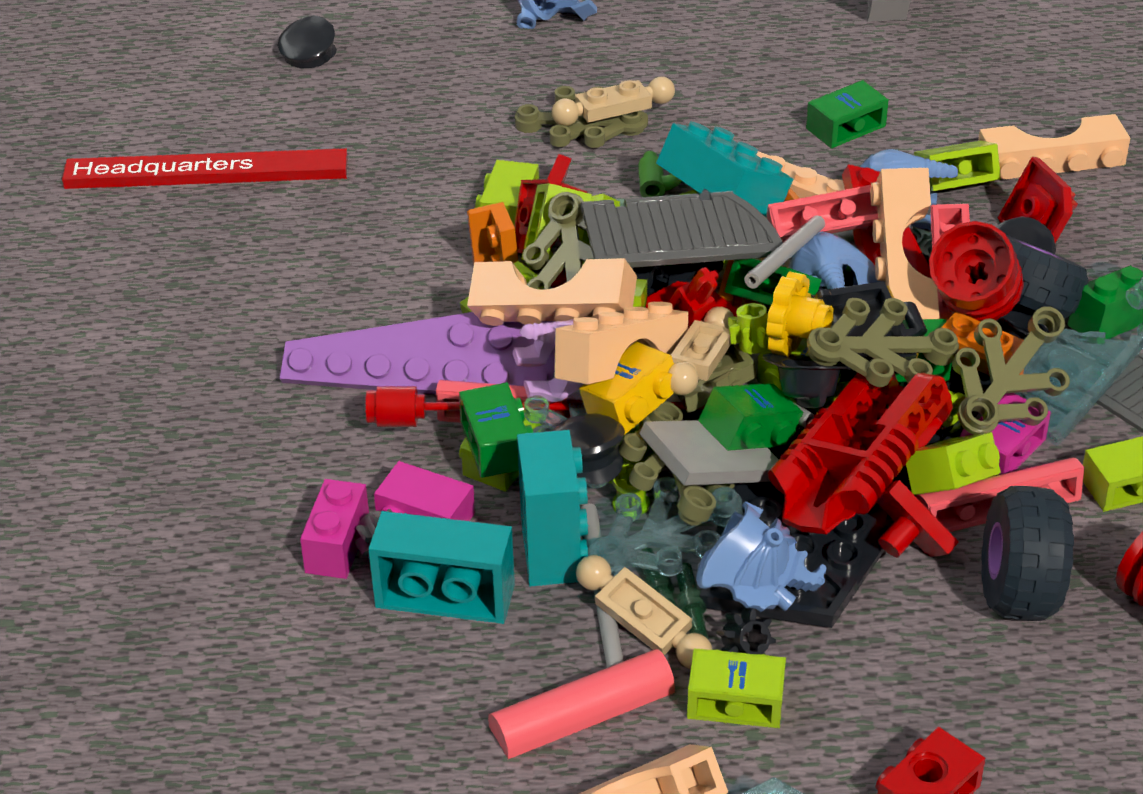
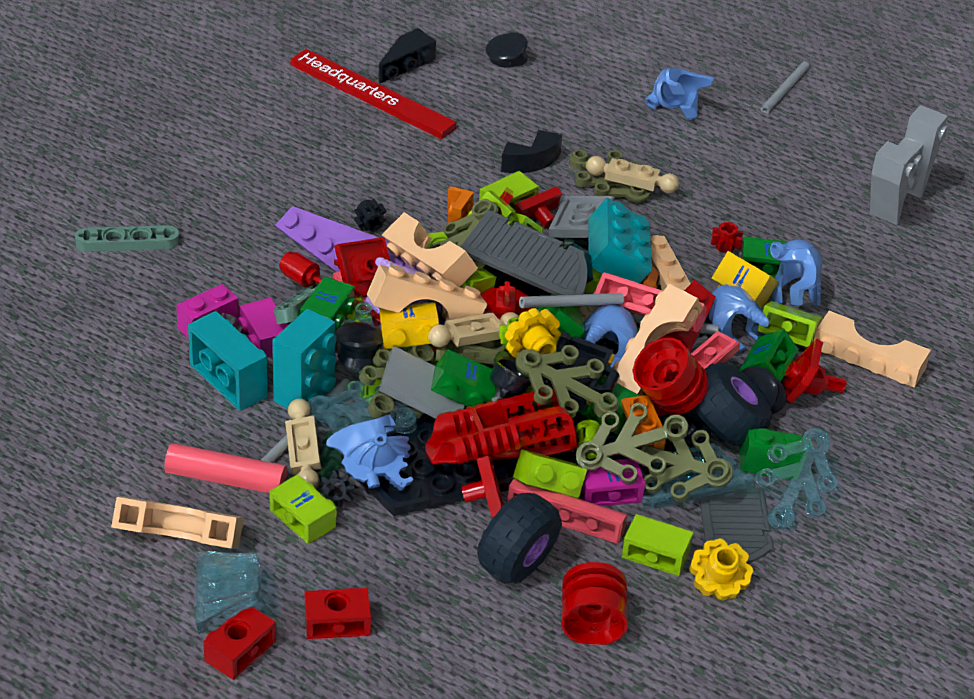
camera: 35 degrees right, 0 degrees up
(158, 469) = (127, 238): none -> sand green beam
(201, 101) = (406, 54): none -> black slope
(383, 301) = (370, 215): none -> black gear
(446, 447) = (290, 308): none -> sand green beam
(473, 354) = (357, 262): none -> red piece
(478, 140) = (529, 159): none -> black brick
(618, 170) = (573, 216): none -> light grey tile
(781, 115) = (726, 237): none -> red gear
(855, 141) = (741, 273): none -> yellow brick
(910, 91) = (797, 260): none -> medium blue piece
(985, 199) = (772, 352): none -> green brick
(1074, 362) = (685, 463): none -> olive plant

